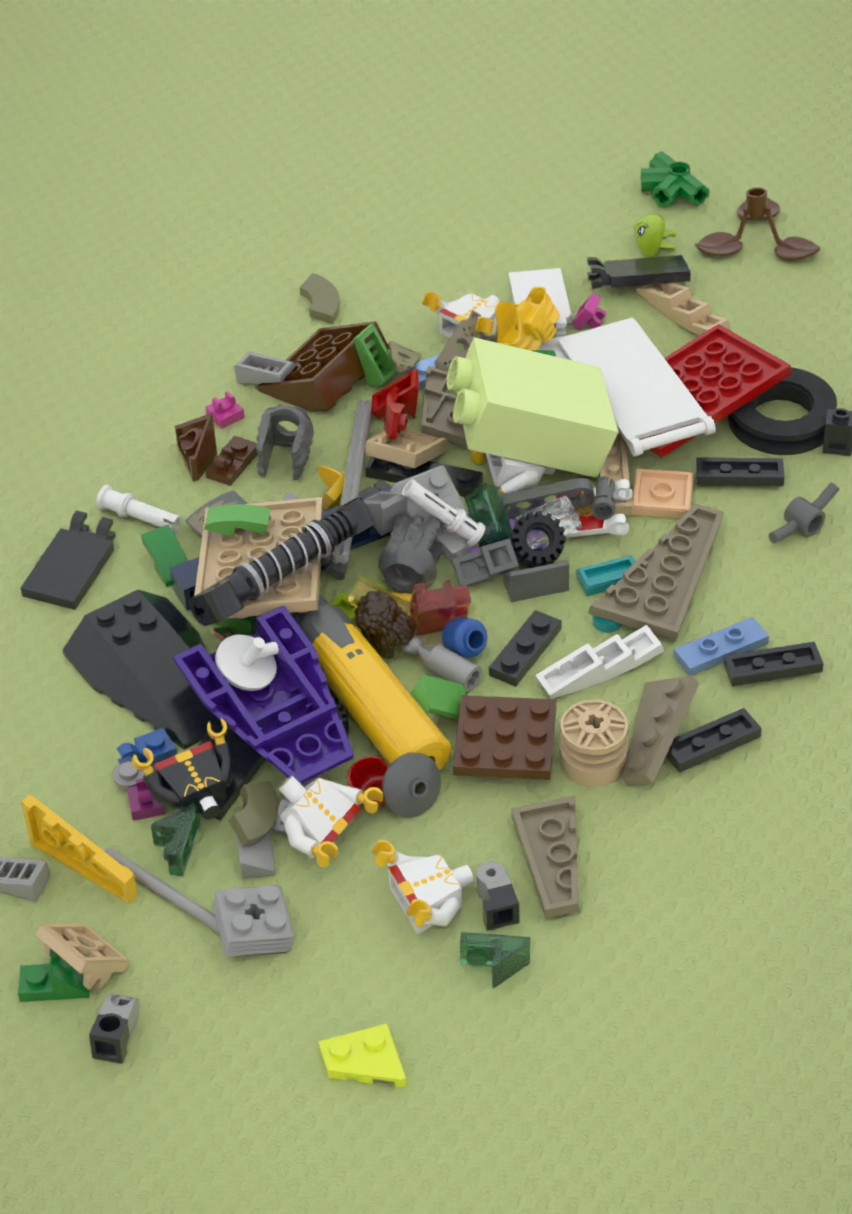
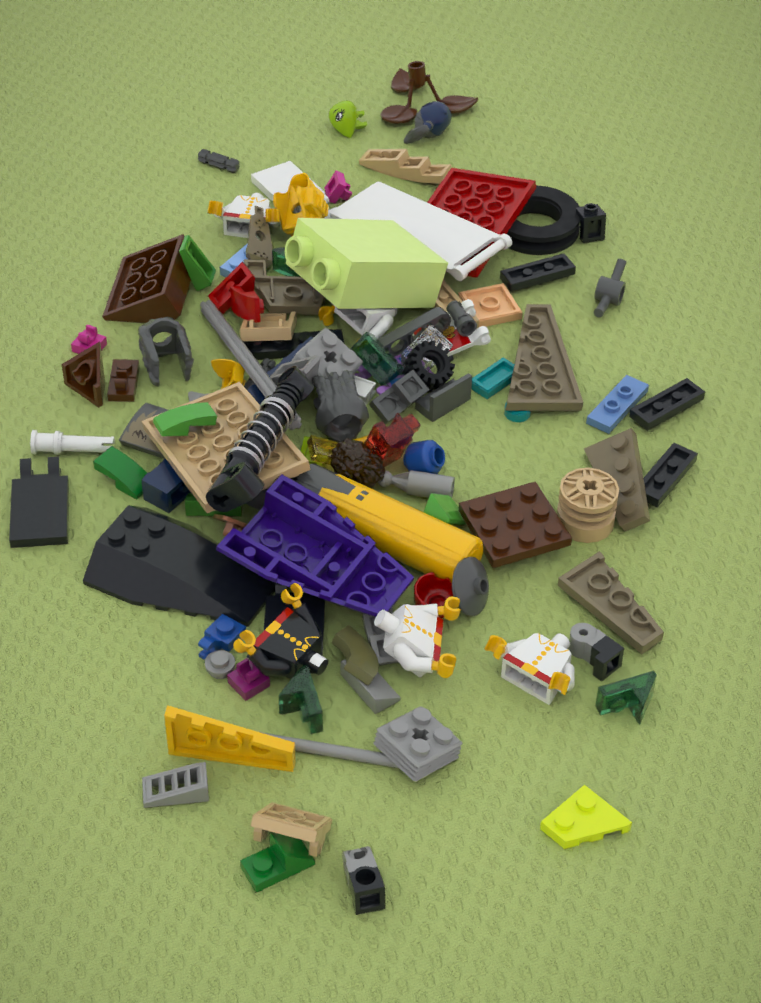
camera: 30 degrees left, 0 degrees up
(247, 661) = (277, 530): white shield -> none
(262, 369) = (100, 300): light grey slope -> none
(322, 296) = (108, 231): olive tile -> none
(403, 356) = (219, 258): dark tan piece -> none
(453, 519) = (361, 366): white pin -> none
(487, 247) = (218, 160): none -> dark grey axle
(525, 648) = (472, 453): black plate -> none
(594, 666) = (539, 445): white slope -> none
(638, 271) = (354, 147): tile -> none
(670, 179) = (330, 76): green piece -> none
(744, 262) = (430, 121): none -> dark blue hair

